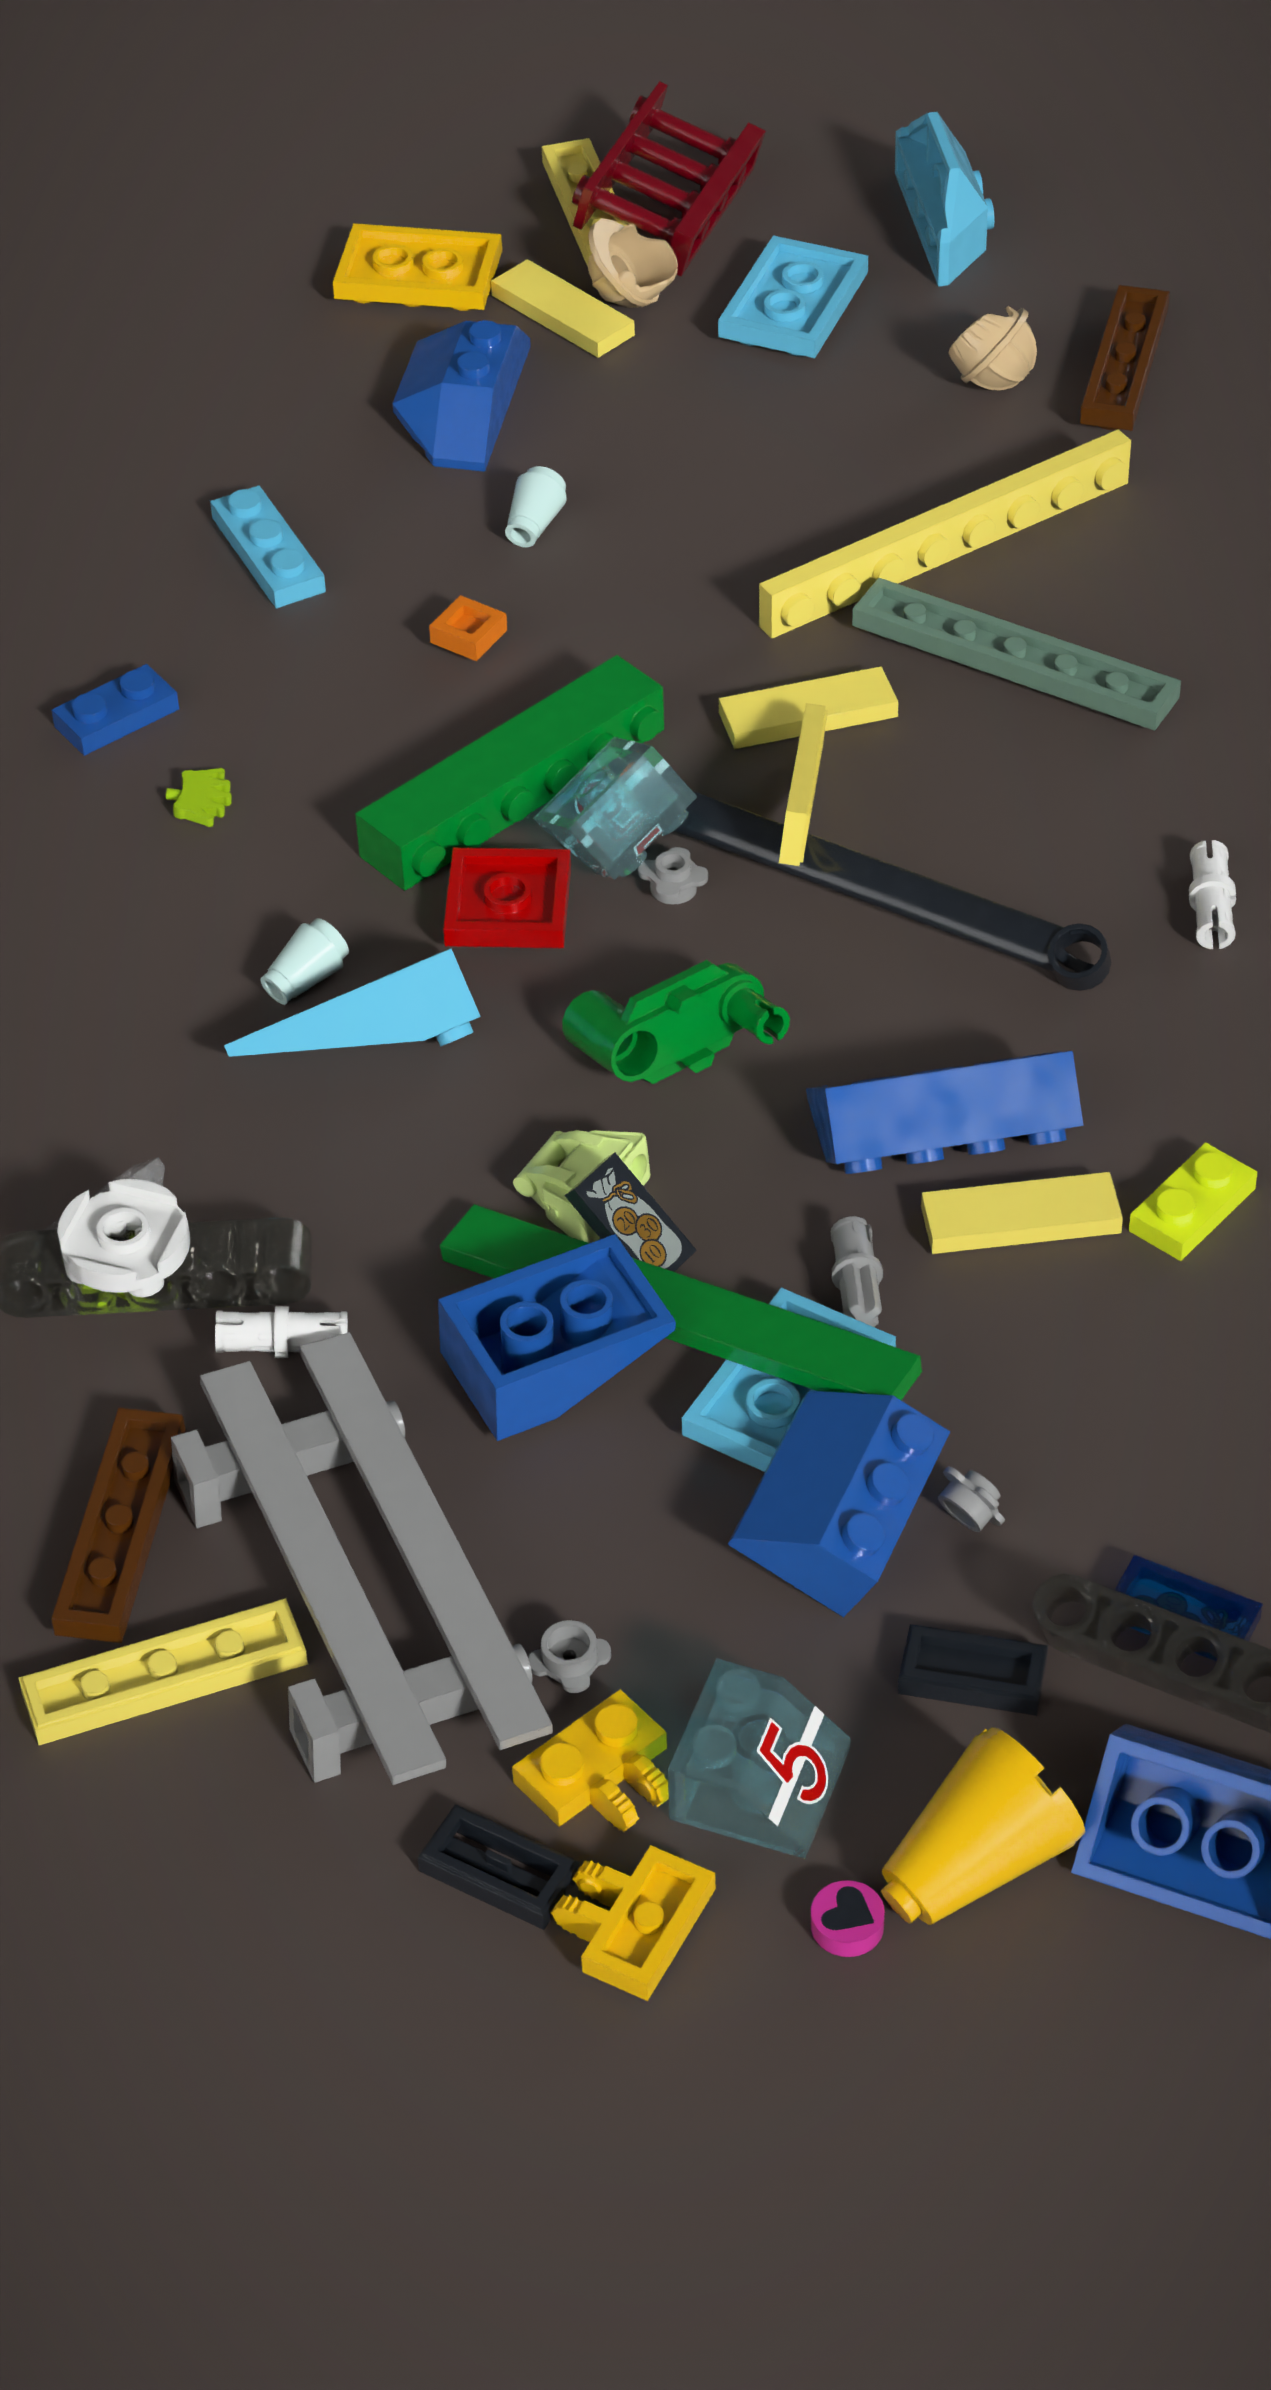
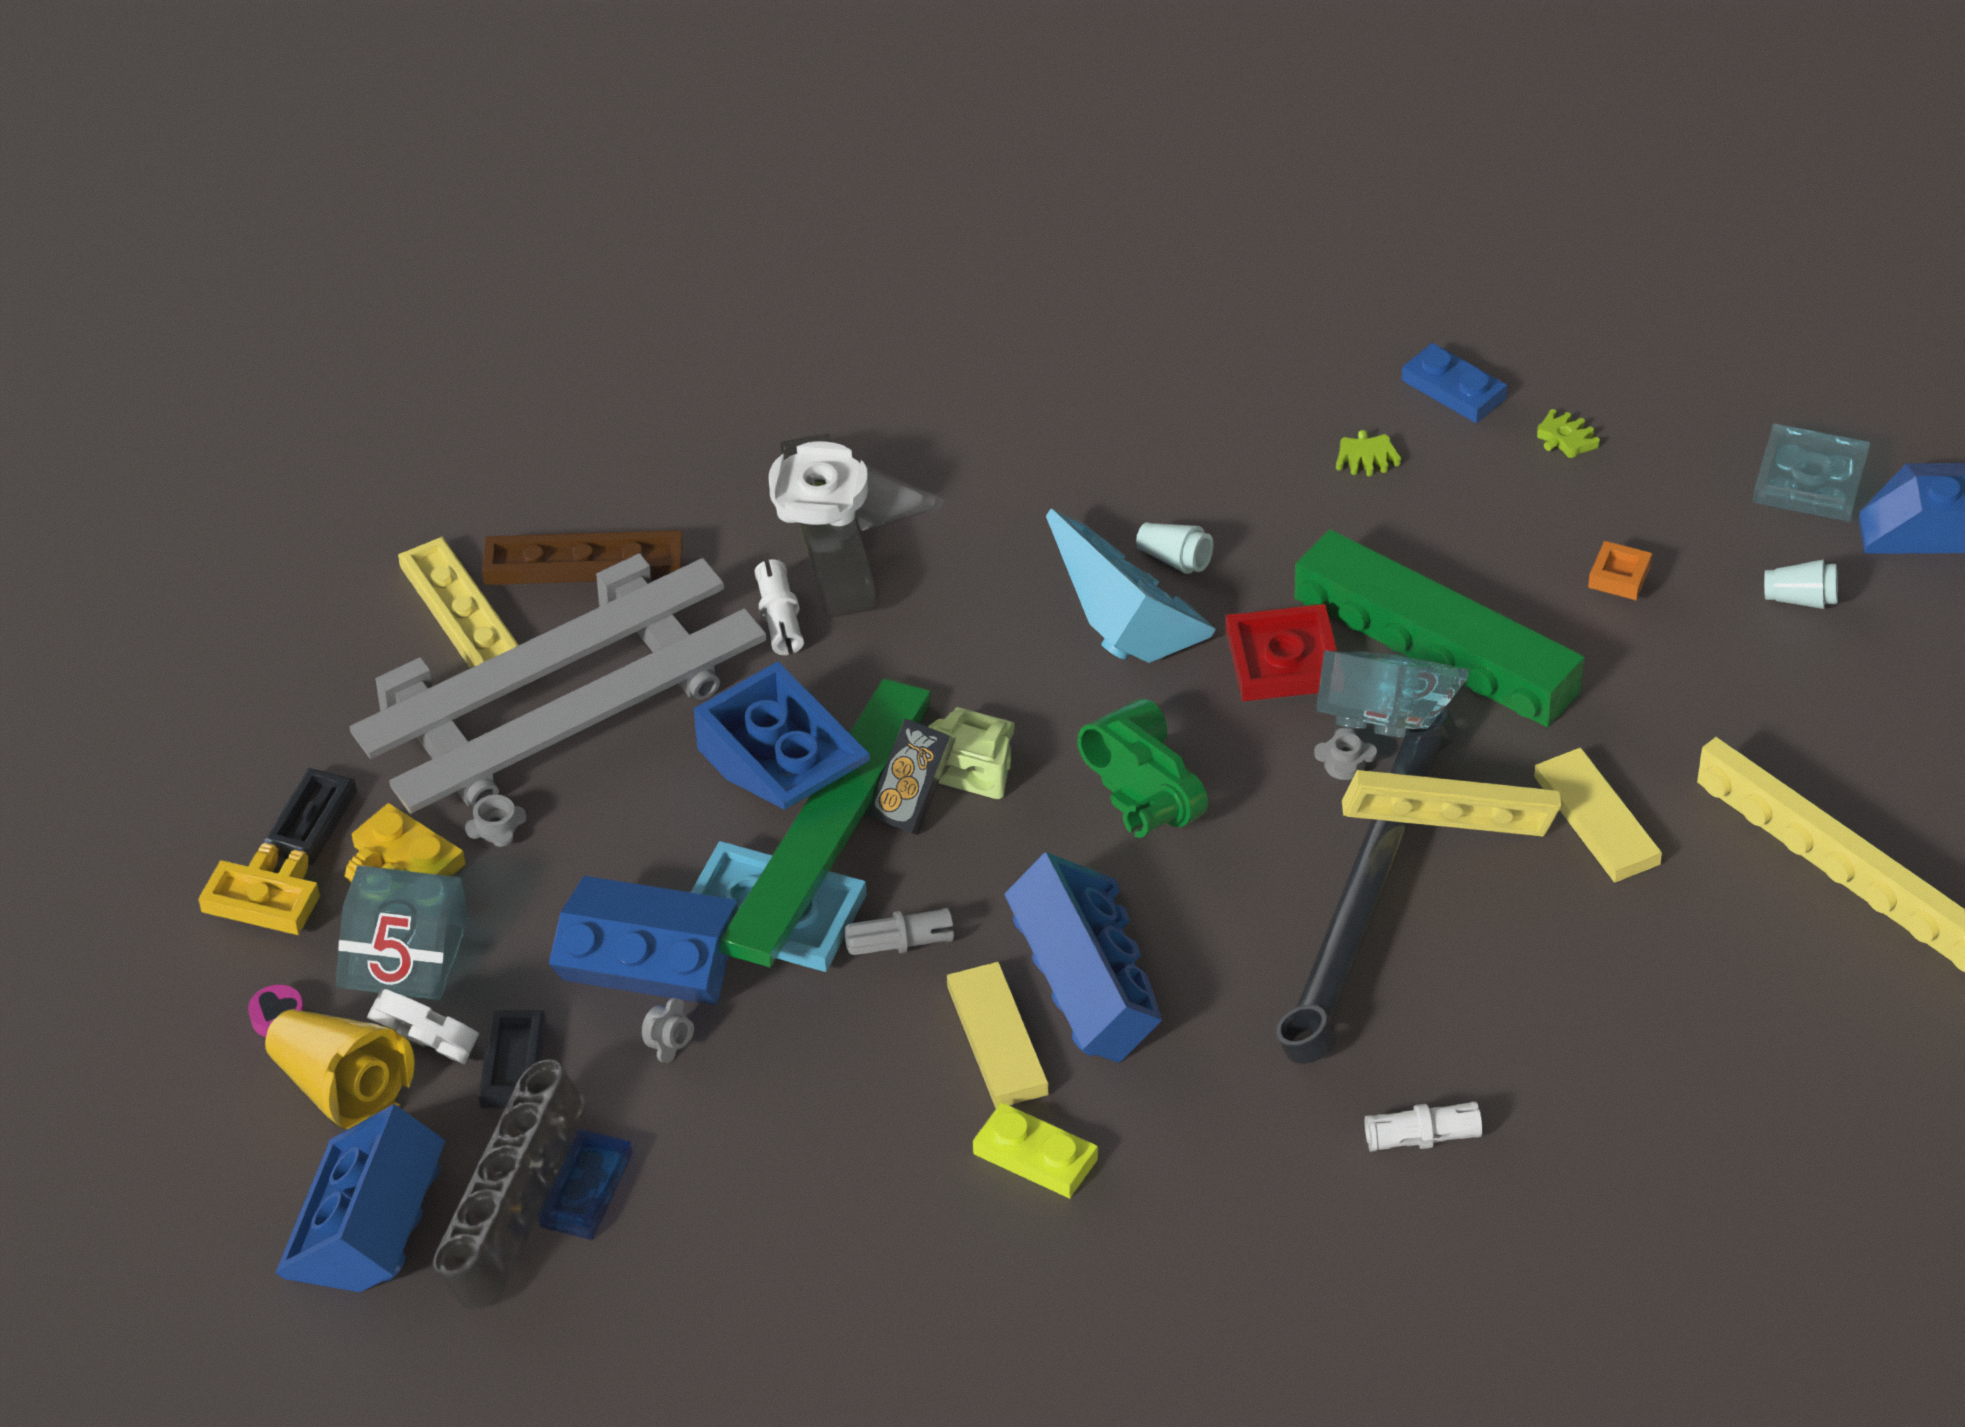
camera: 80 degrees right, 0 degrees up
(229, 643) = (1566, 435): none -> lime piece
(267, 546) = (1695, 430): medium azure plate -> none
(371, 473) = (1811, 472): none -> clear light blue plate
(930, 1738) = (423, 1026): none -> white plate
(1017, 653) = (1712, 949): sand green plate -> none

